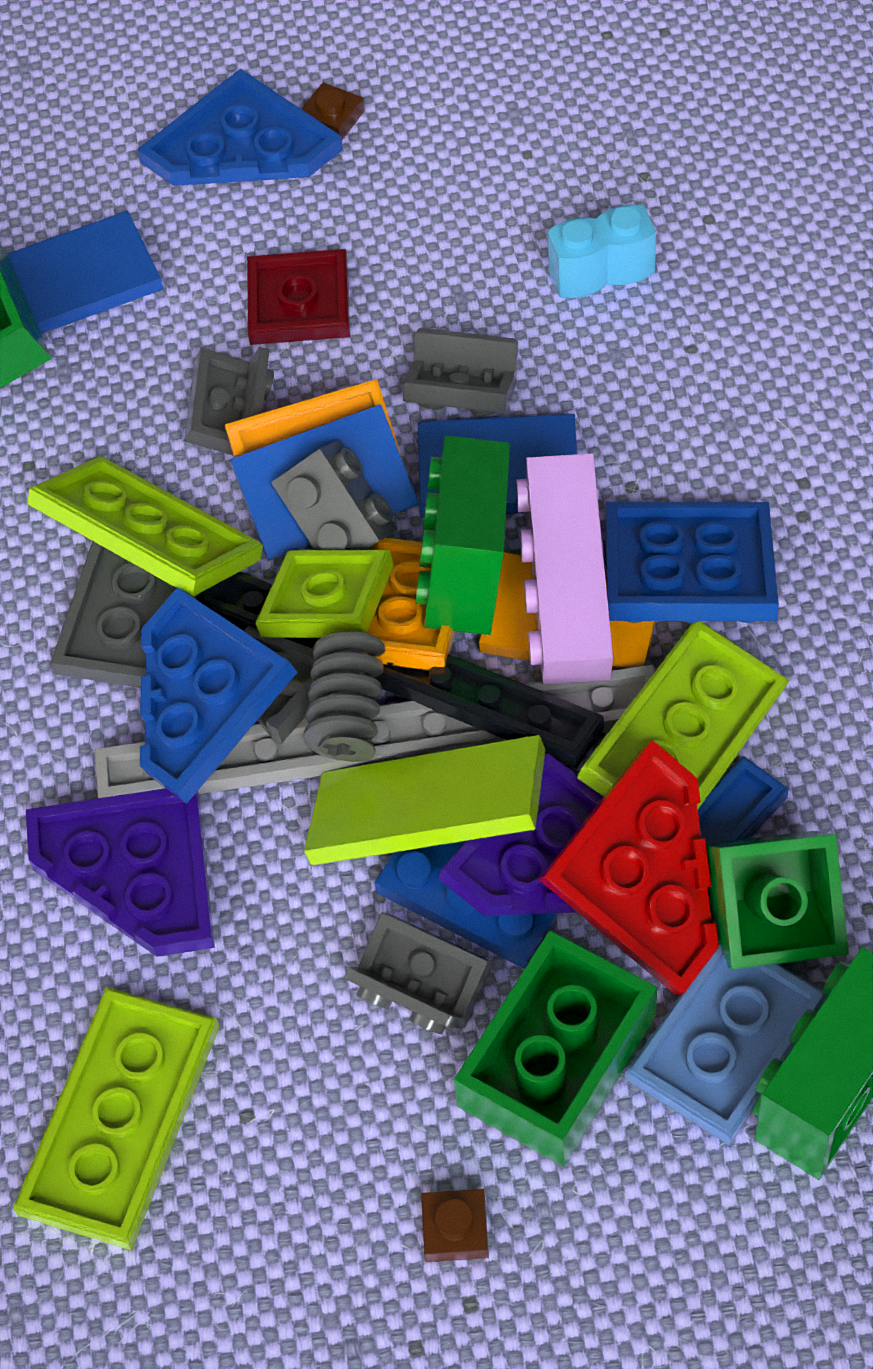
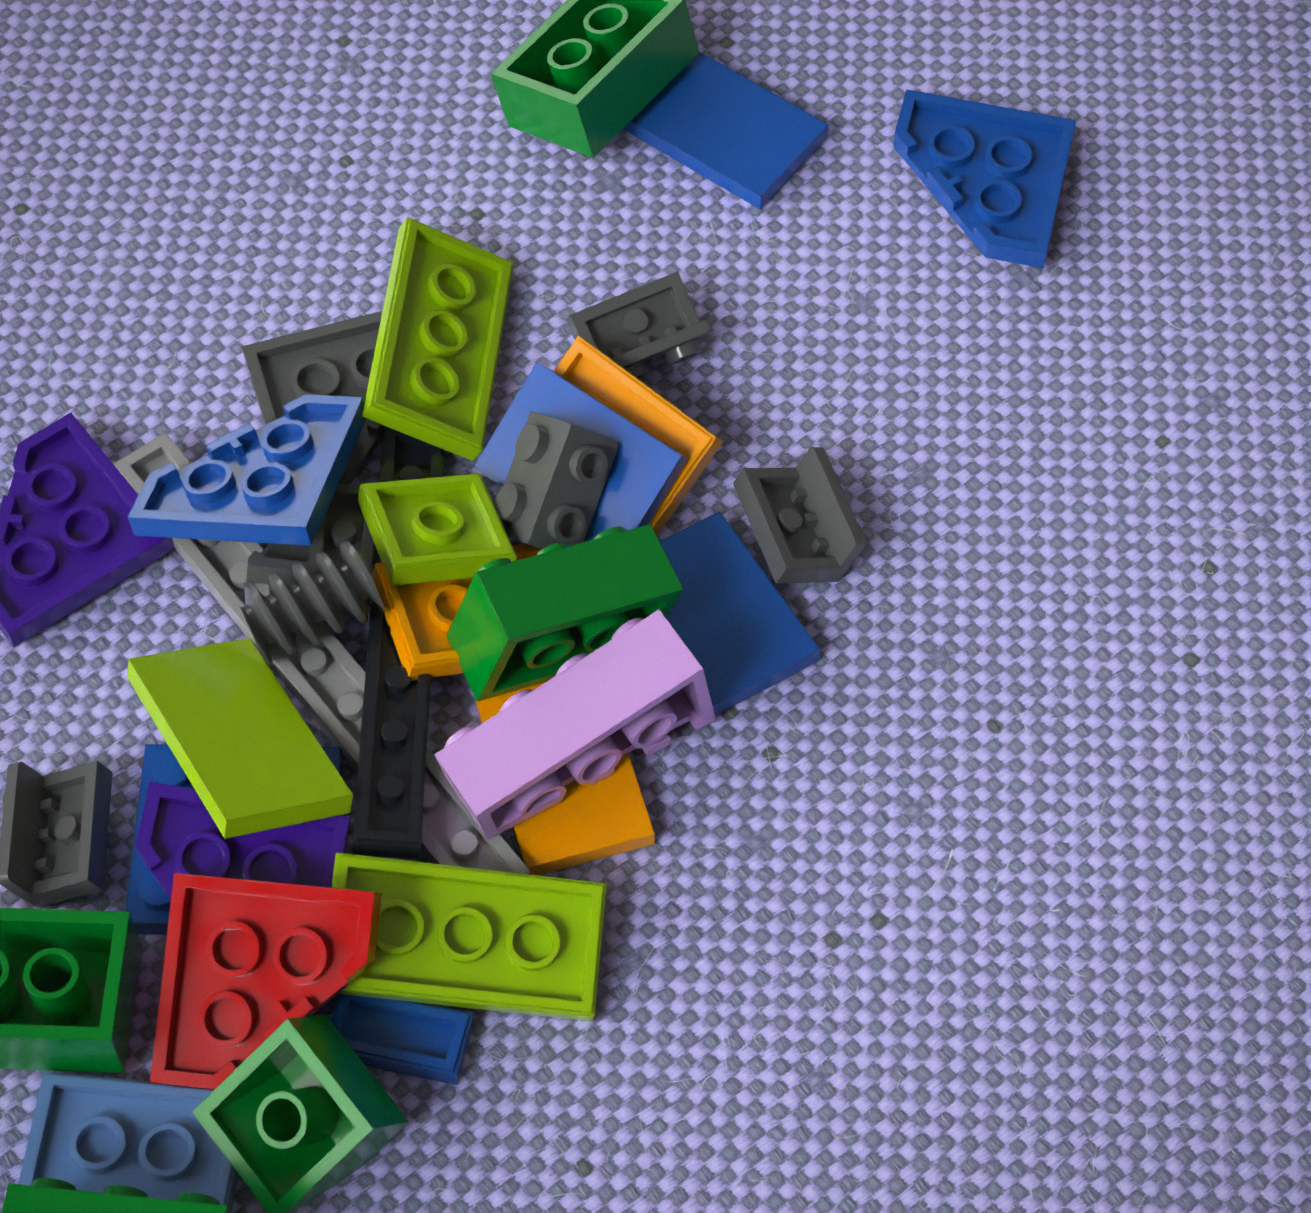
camera: 55 degrees right, 0 degrees up
(298, 296) = (822, 328): dark red tile -> none
(335, 108) = (1088, 232): reddish brown plate -> none
(601, 251) = (1056, 572): medium azure brick -> none
(690, 562) = (675, 844): blue plate -> none

